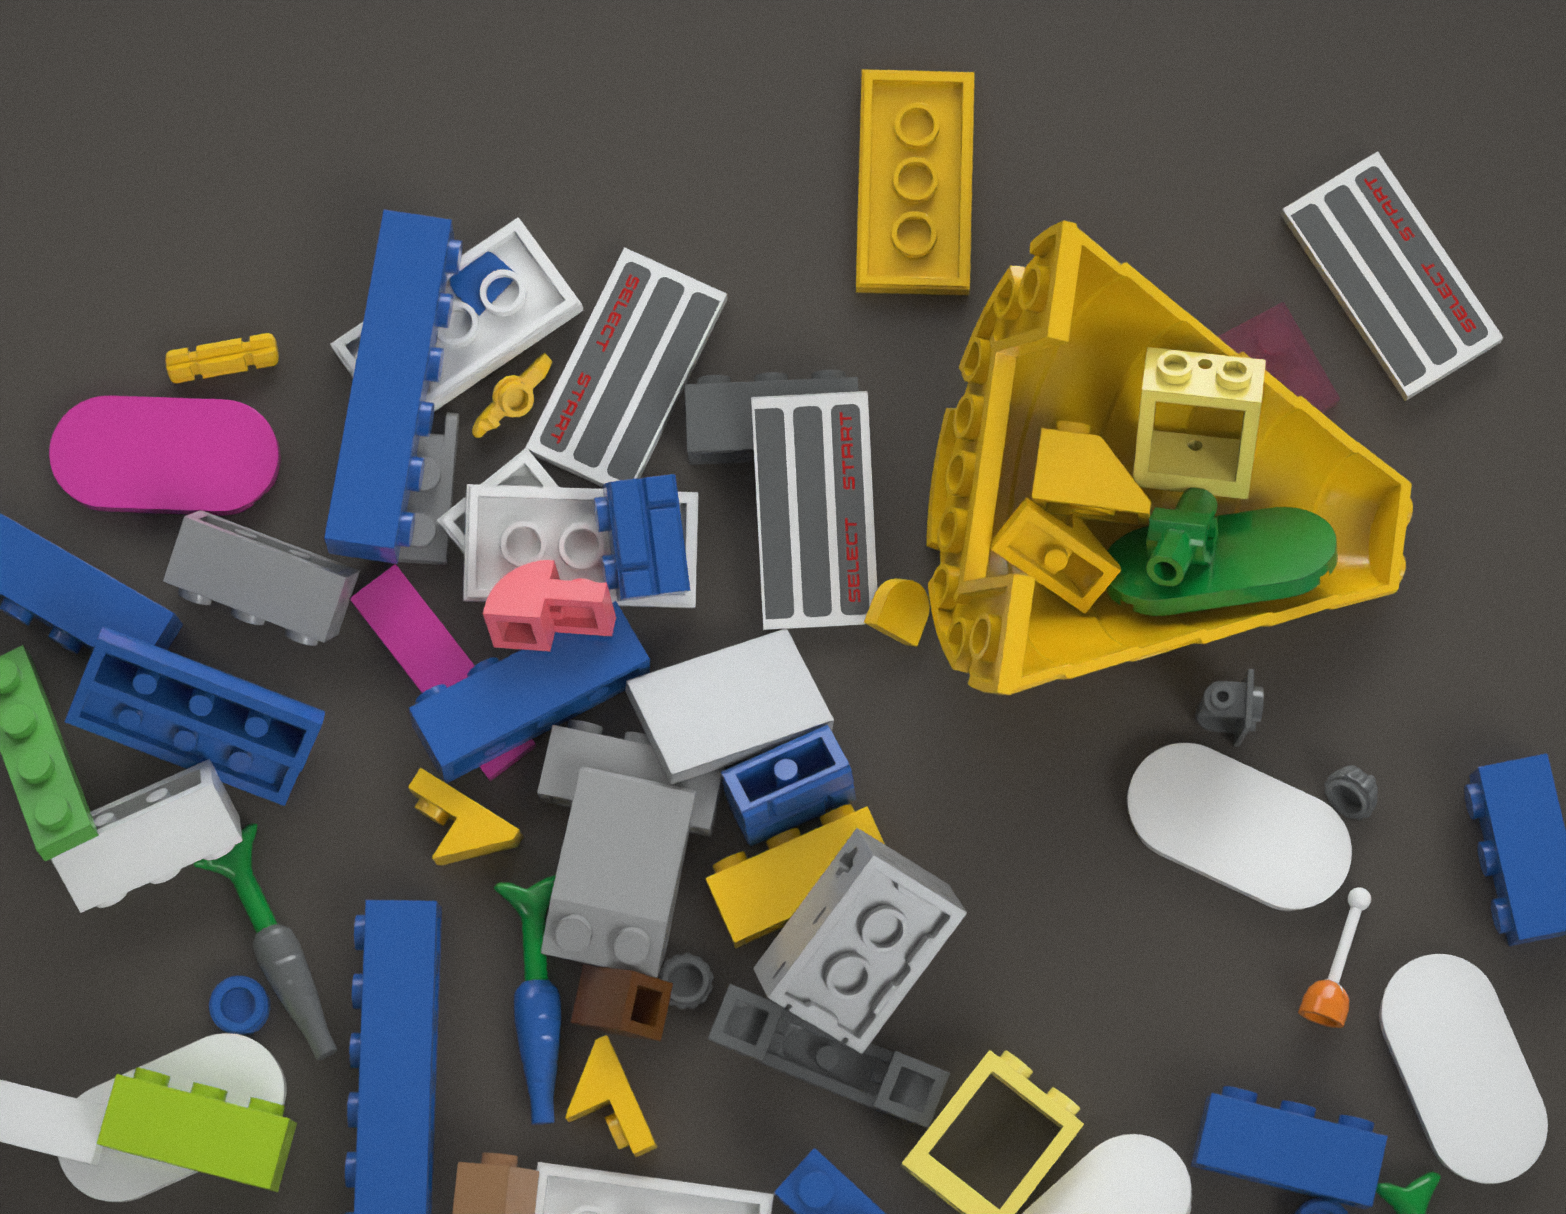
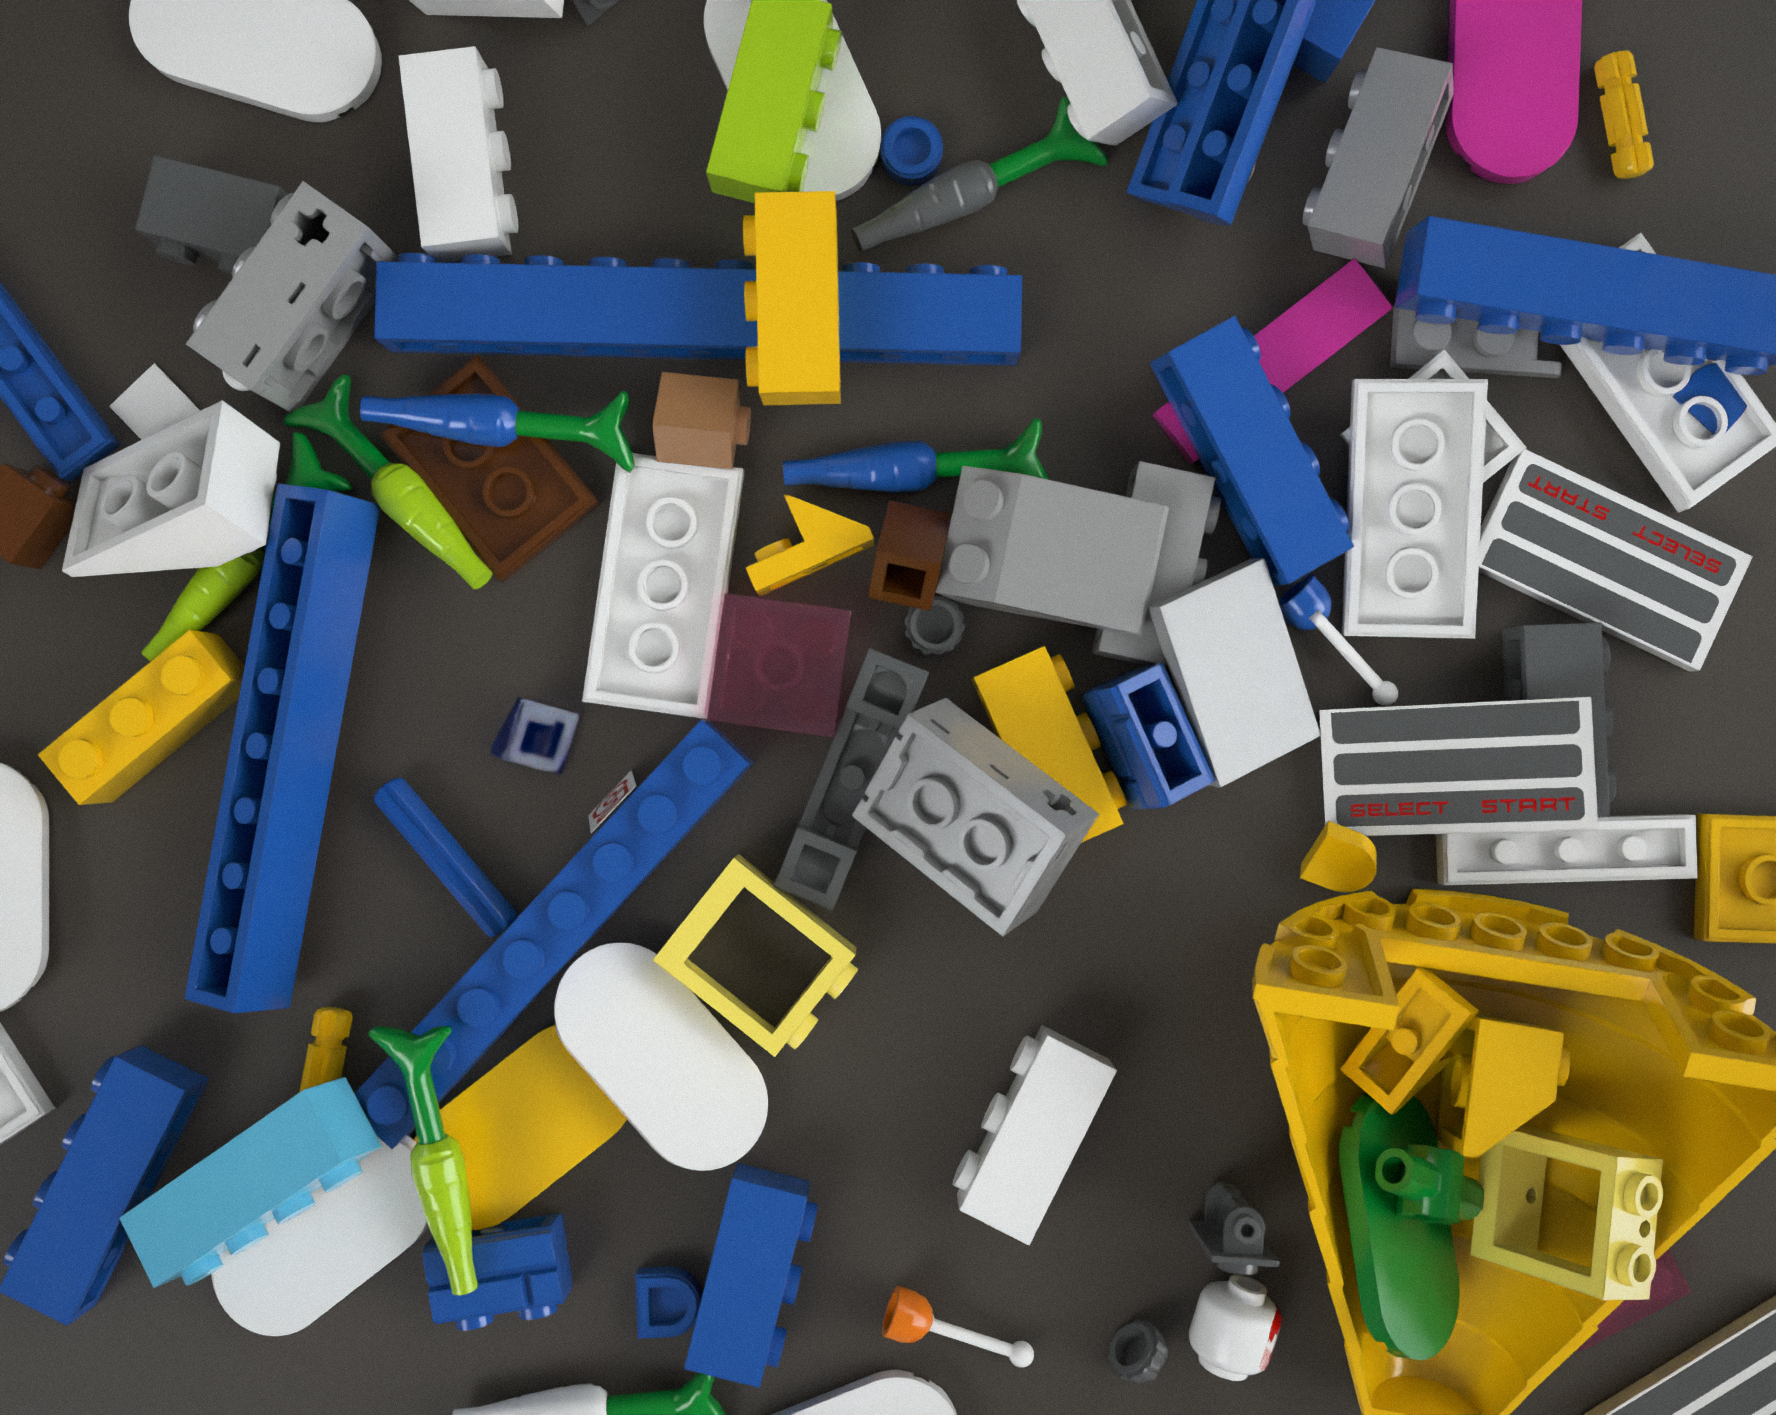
camera: 80 degrees right, 10 degrees up
(389, 1105) = (794, 298): none -> yellow brick
(475, 827) = (1099, 394): yellow slope -> none
(512, 396) = (1581, 434): yellow piece -> none
(535, 604) = (1351, 454): coral brick -> none
(643, 538) = (1427, 577): blue brick -> none
(669, 639) = (1307, 608): none -> hinge
(723, 1125) = (779, 665): none -> clear pink plate
(890, 379) = (1619, 850): none -> white tile
(1152, 888) = (1032, 1133): none -> white brick
(1239, 826) = (1103, 1229): white tile -> none
(1324, 704) = (1235, 1328): none -> white head

